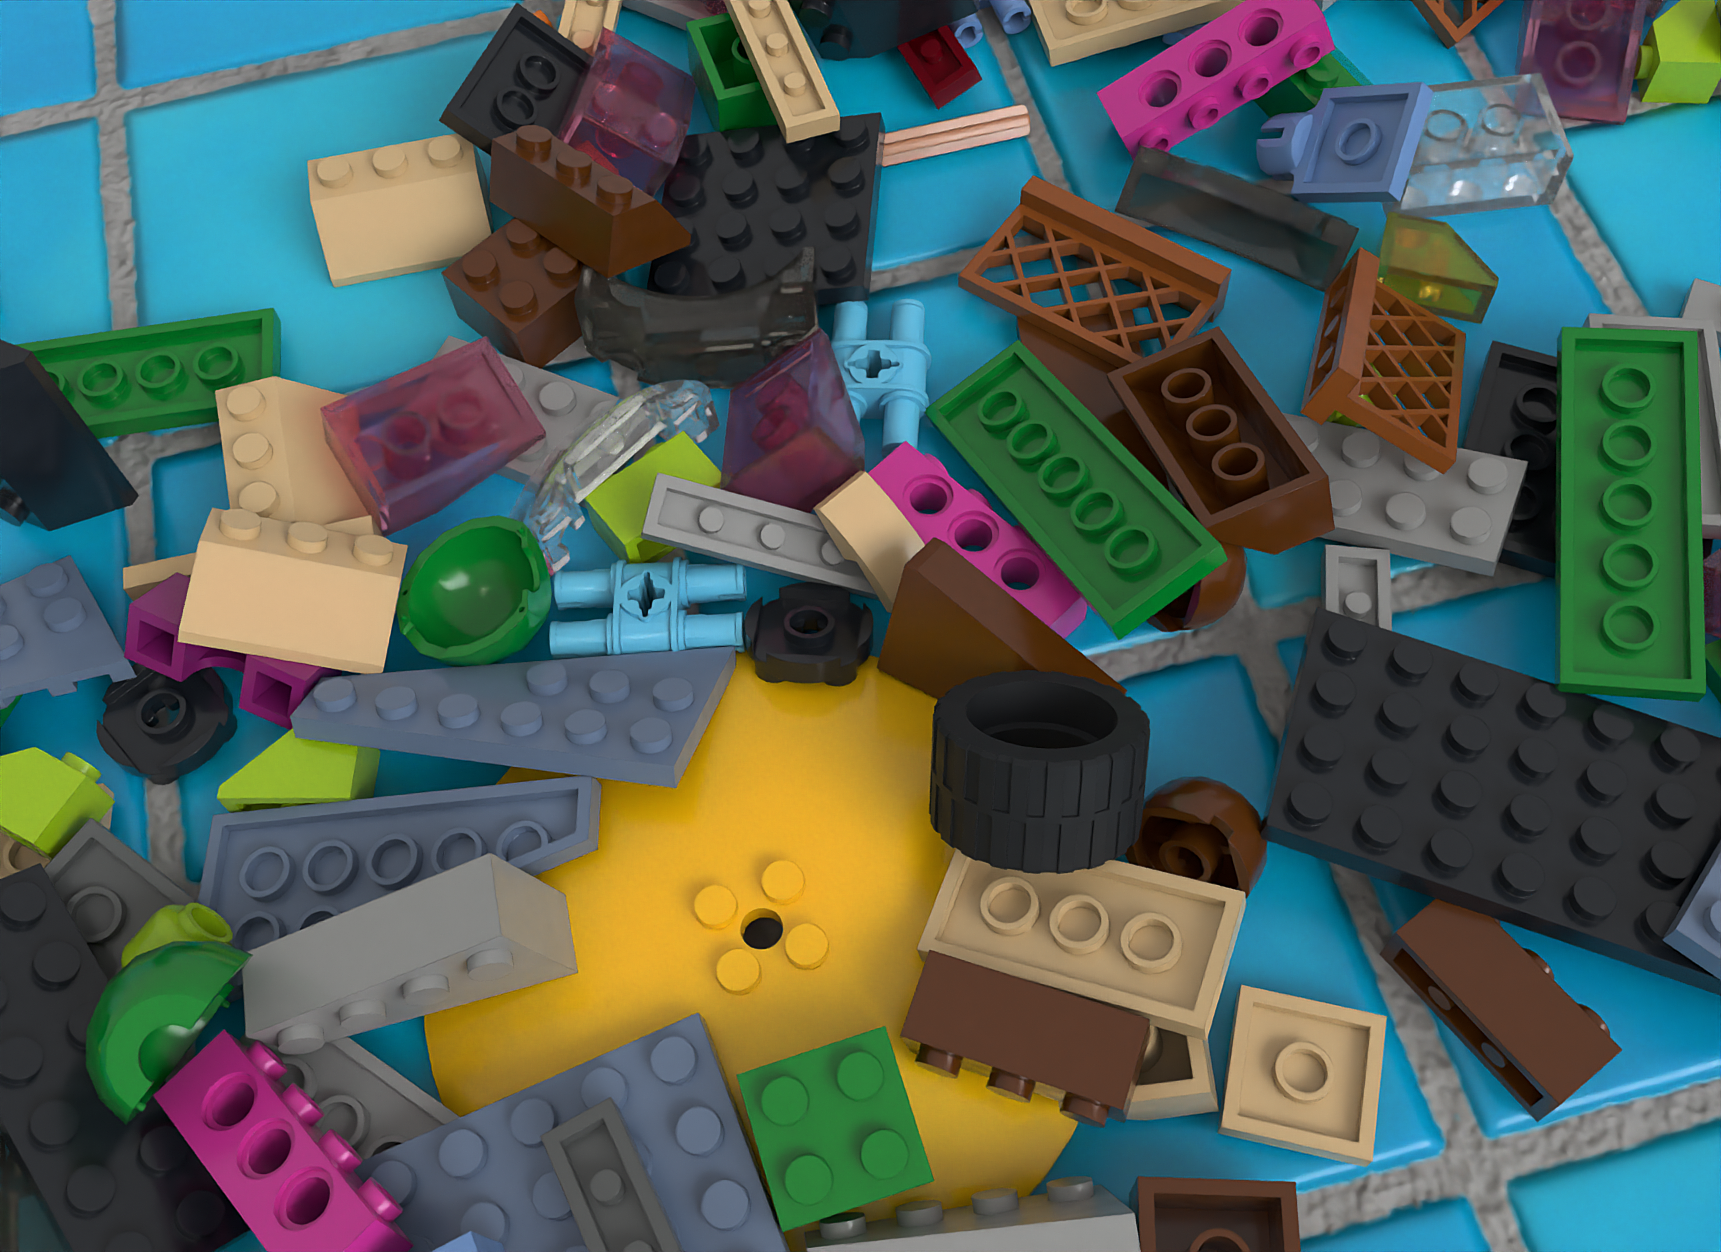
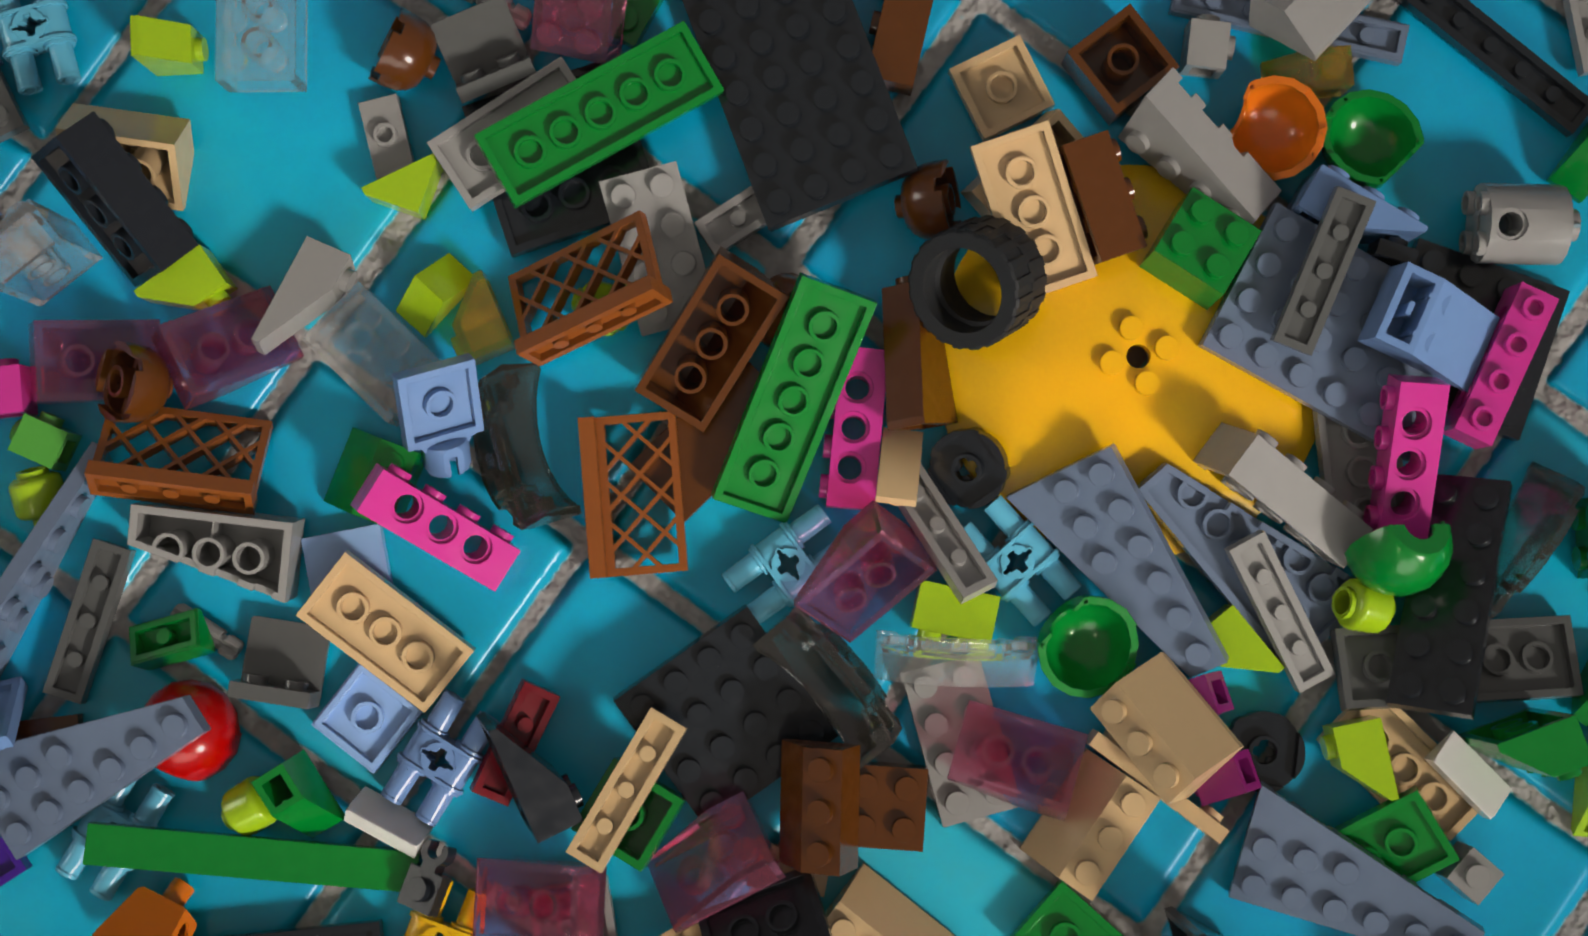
camera: 130 degrees left, 25 degrees up
(284, 841) = (1279, 611): none -> light grey plate
(955, 134) = (573, 663): axle -> none
(1511, 250) = (434, 294): none -> lime slope
(1605, 132) = (307, 291): none -> light grey slope
(1657, 283) = (408, 188): none -> lime slope

